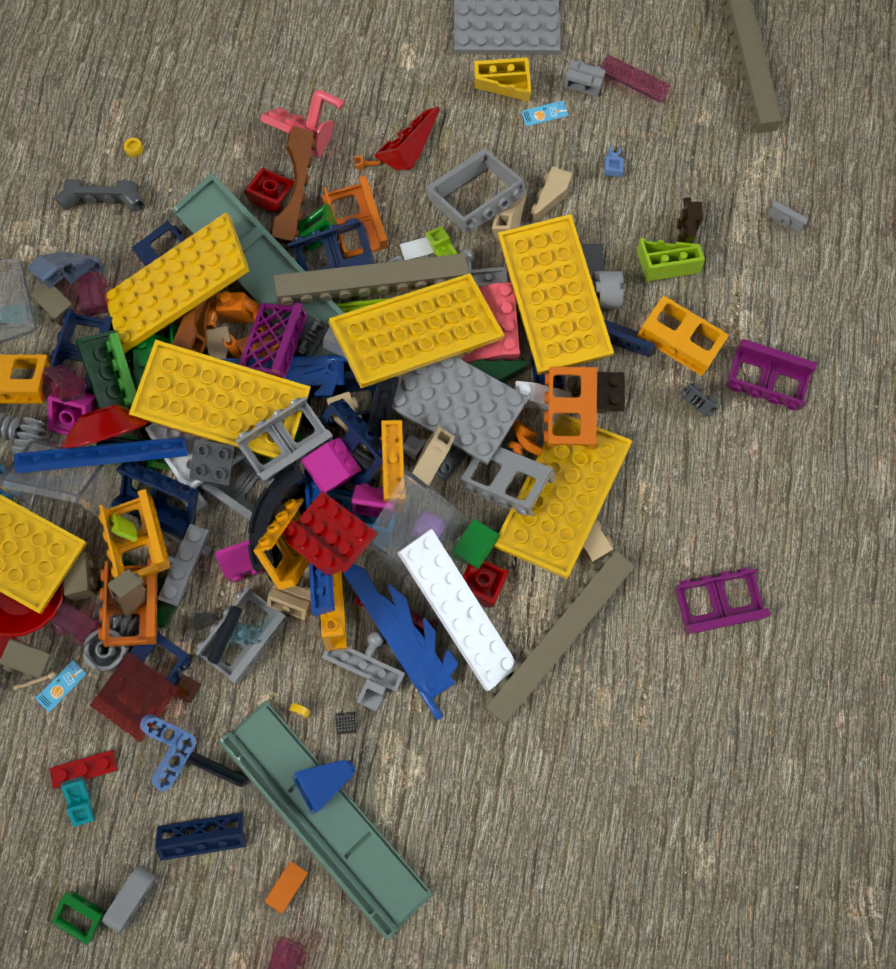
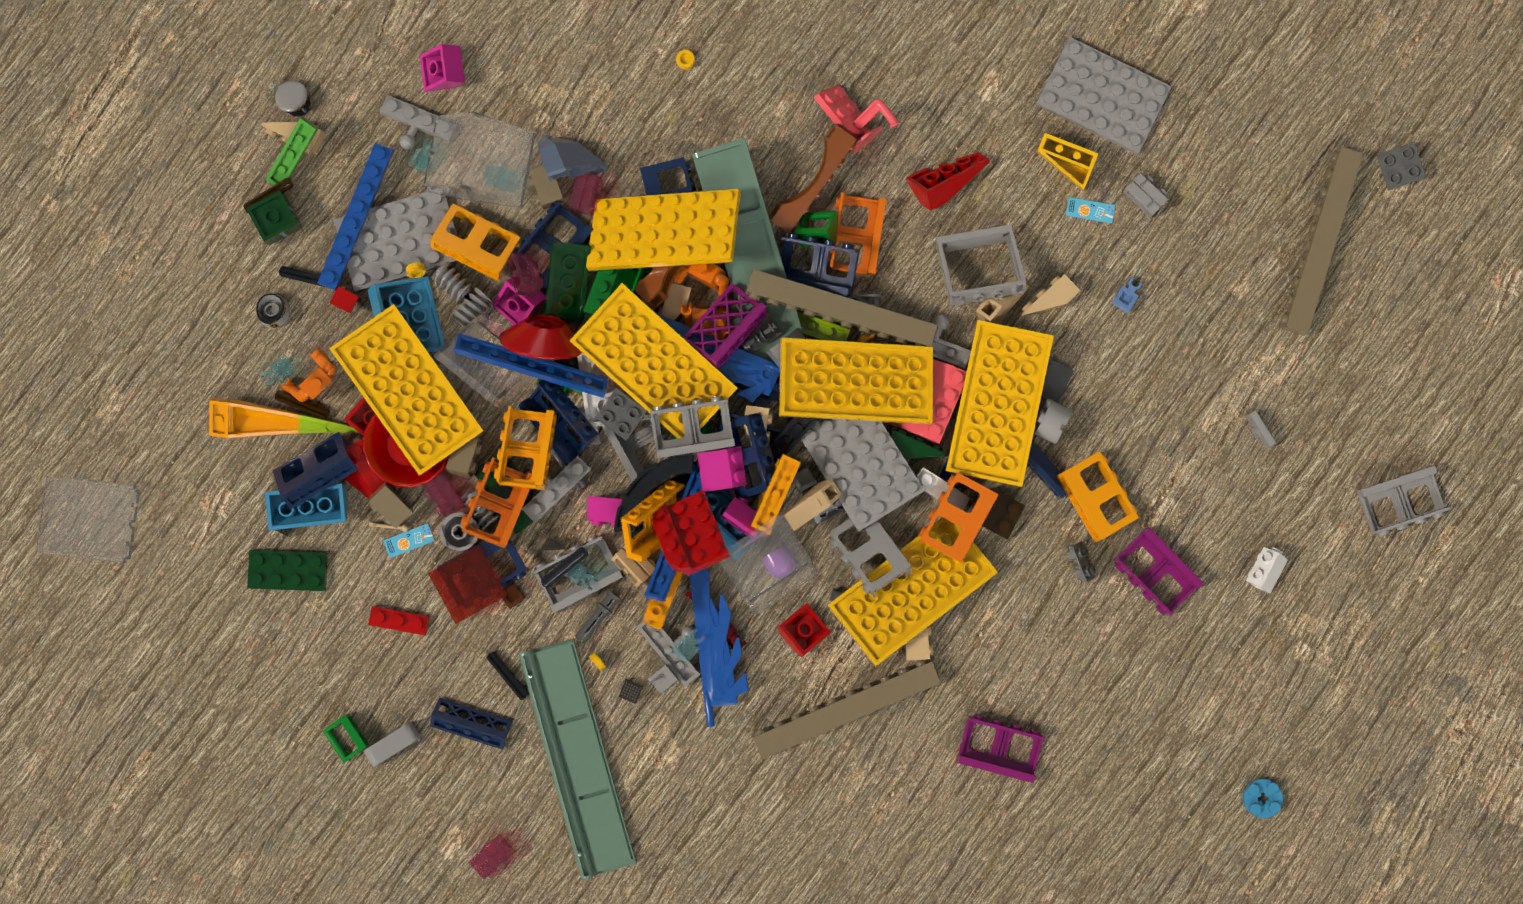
camera: 30 degrees right, 10 degrees up
(76, 192) = (658, 105): dark grey plate -> none
(78, 800) = (384, 645): teal slope -> none
(120, 365) = (581, 284): bright green plate -> none
(123, 527) = (521, 435): lime slope -> none
(128, 591) = (501, 496): dark tan brick -> none
(174, 742) = (482, 638): medium blue beam -> none
(268, 190) = (791, 168): red slope -> none
(273, 692) = (602, 608): none -> dark grey pin
(286, 887) = (520, 798): orange slope -> none
(322, 782) = (588, 732): blue slope -> none
(362, 164) = (894, 181): orange hand -> none
(380, 651) = (688, 646): none -> clear light blue plate
(416, 248) = (908, 291): white sticker -> none
(440, 242) = (924, 300): lime slope -> none
(458, 609) = (769, 646): white plate -> none
(475, 544) = (813, 596): green slope -> none
(516, 447) = (892, 528): orange arm -> none
(526, 436) = (906, 520): orange slope -> none
(635, 78) = (1194, 217): clear pink plate -> none
(669, 260) = (1124, 418): lime wedge -> none
(689, 220) = (1163, 392): dark brown plate -> none
(862, 327) = (1267, 569): none -> white brick

